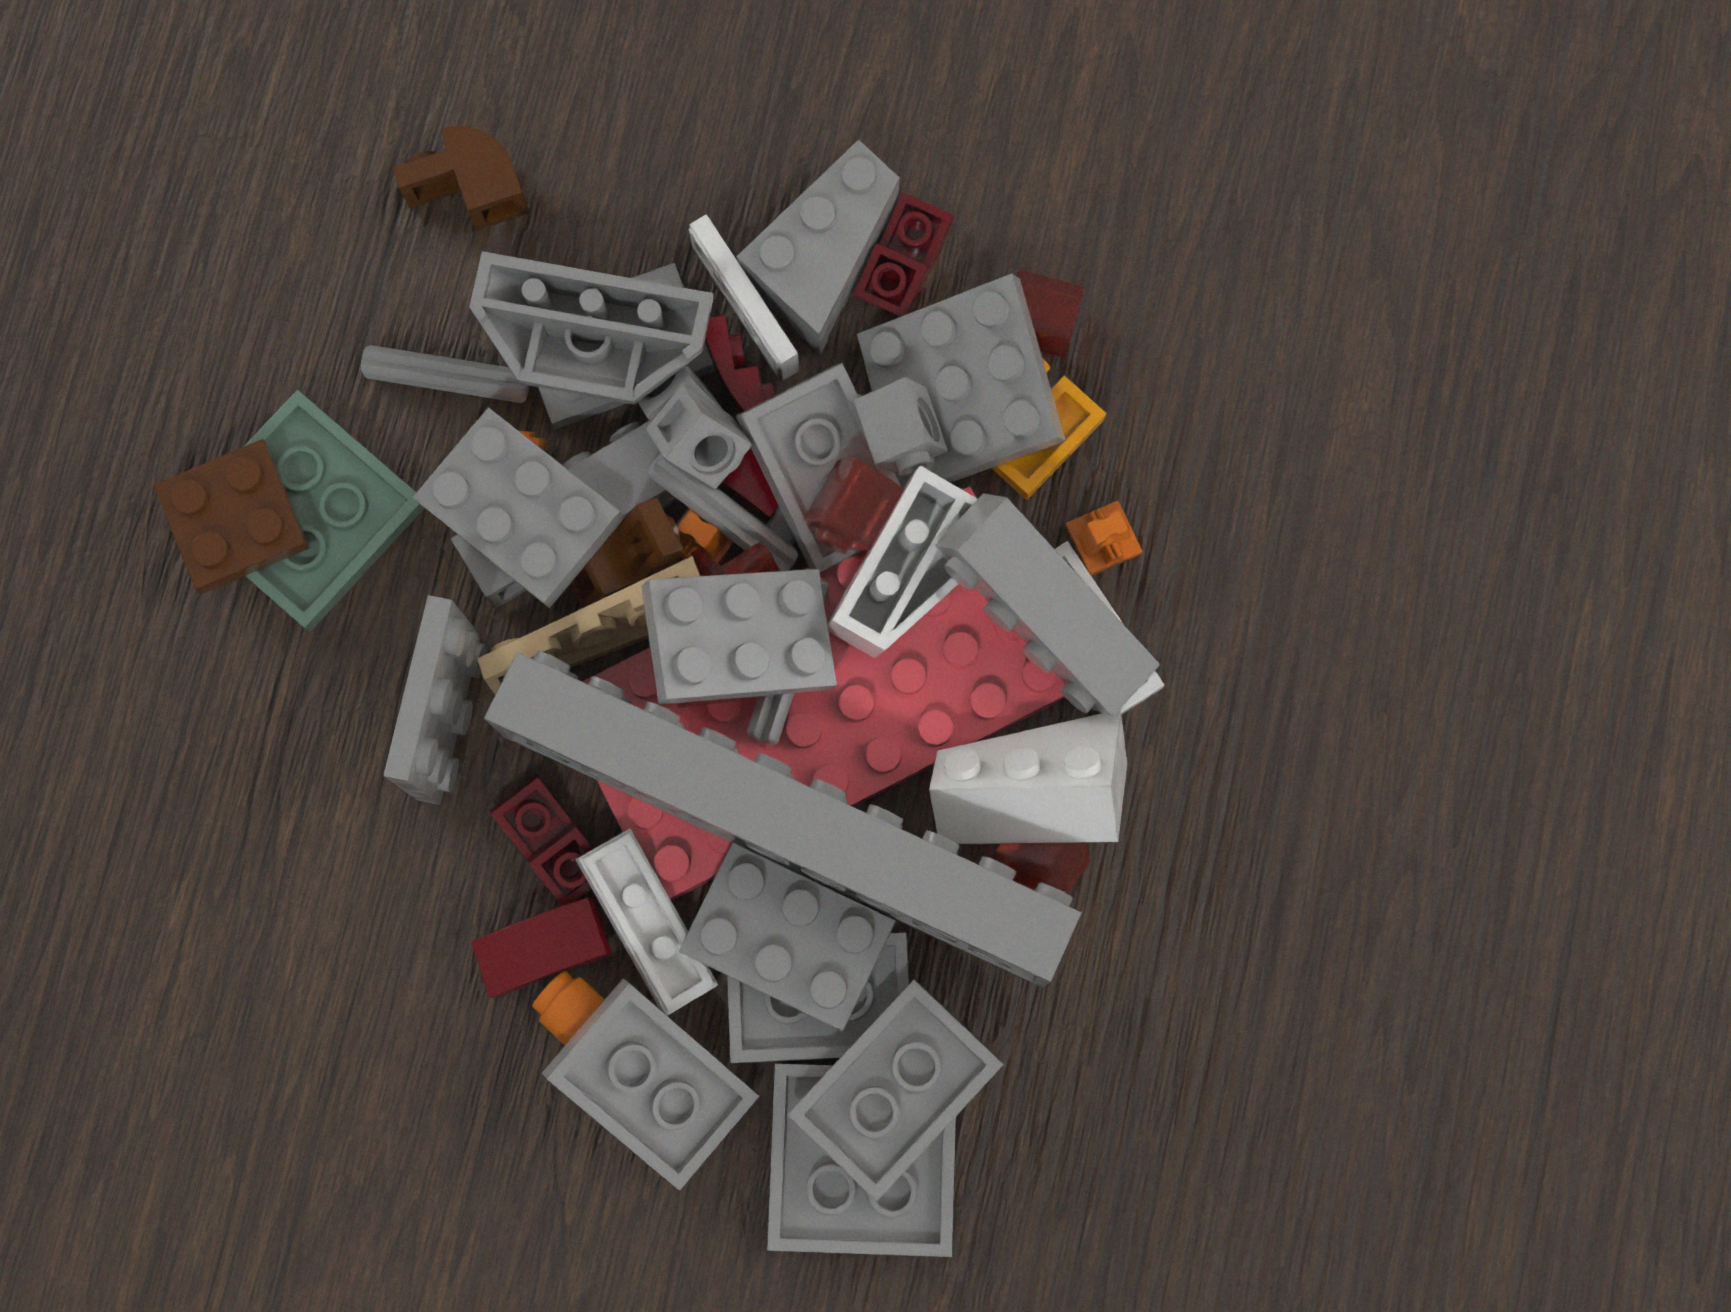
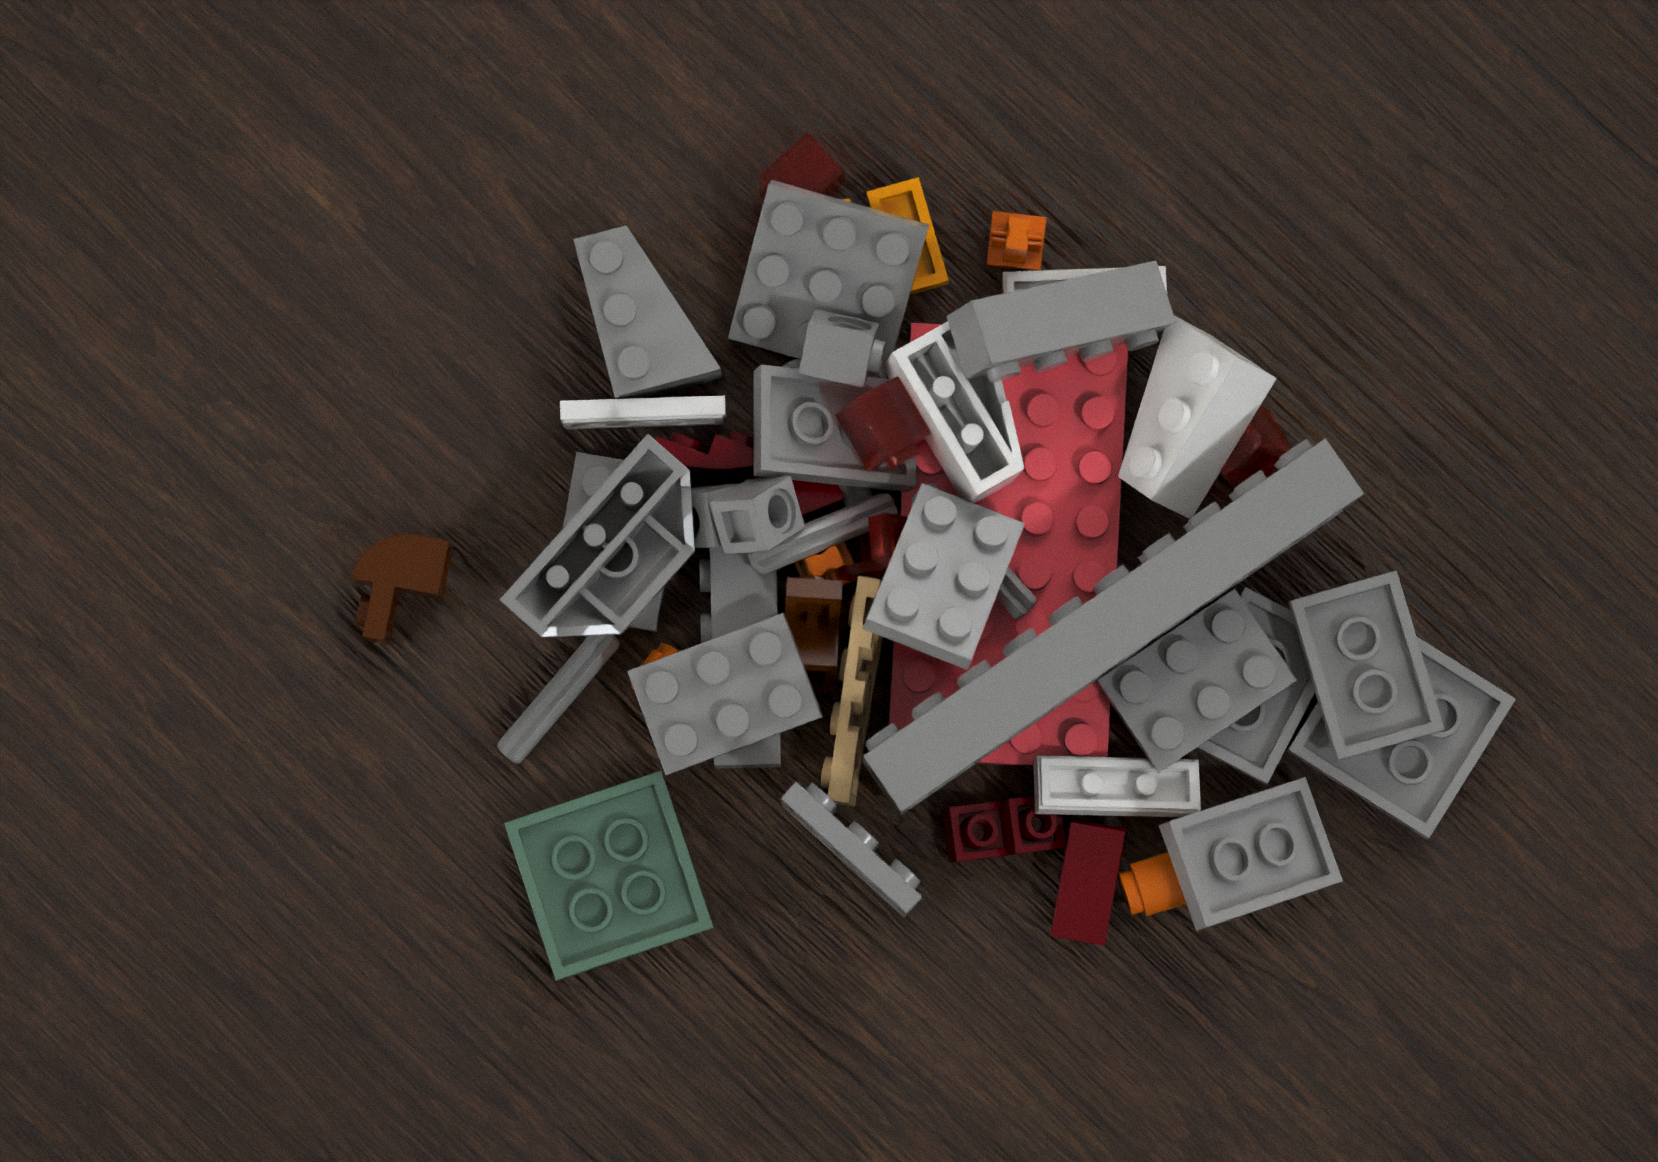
camera: 60 degrees left, 5 degrees up
(231, 516) = (585, 934): reddish brown plate -> none
(904, 255) = (682, 259): dark red slope -> none

